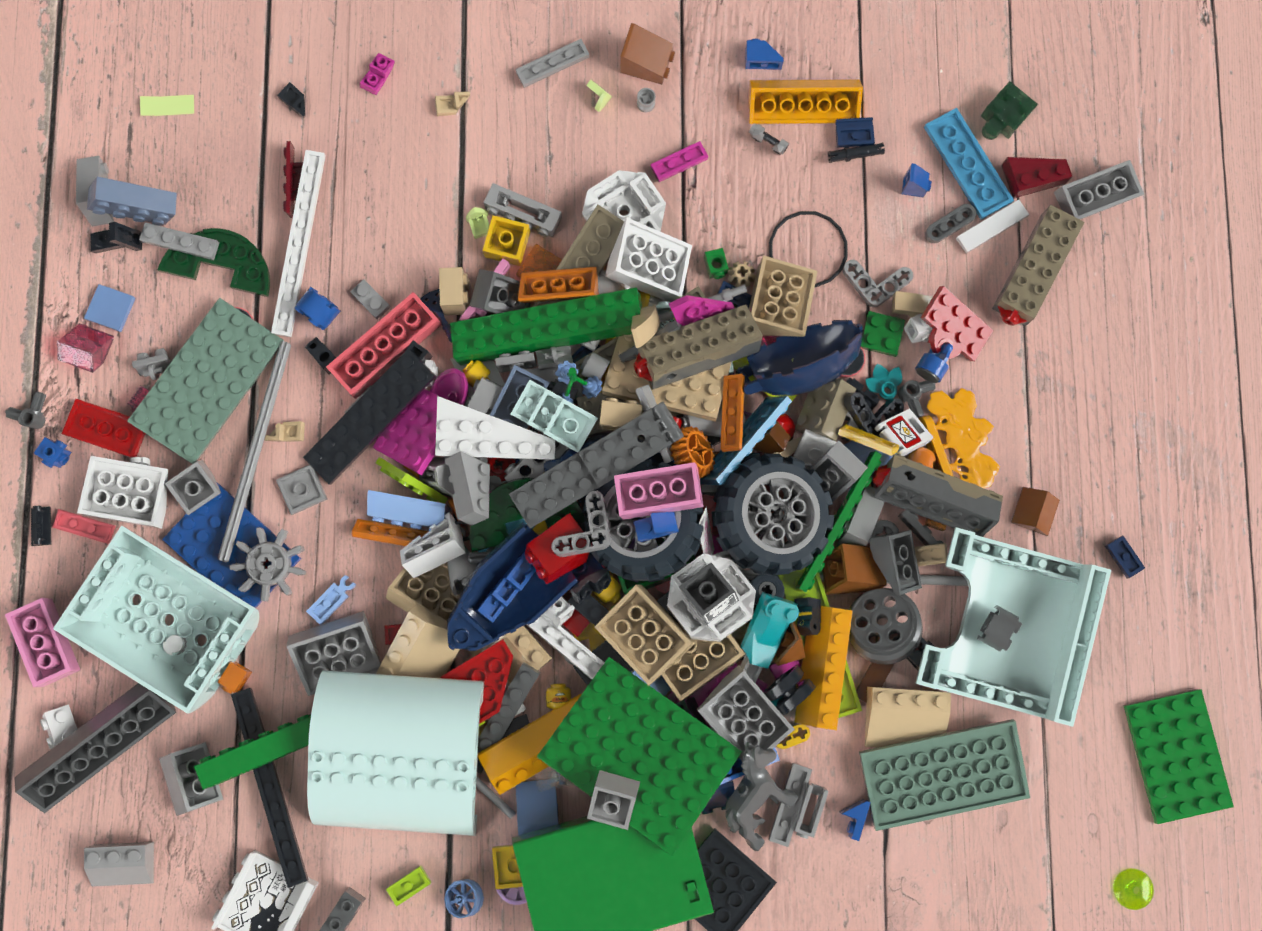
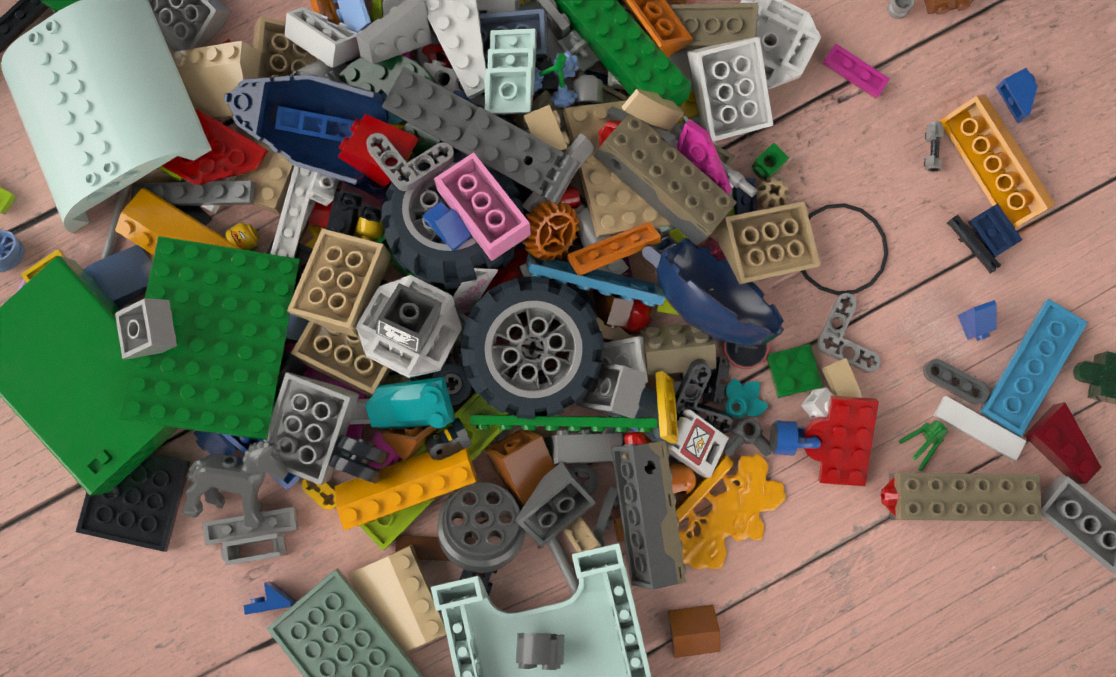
camera: 65 degrees right, 0 degrees up
(981, 260) = (933, 434): none -> green plant

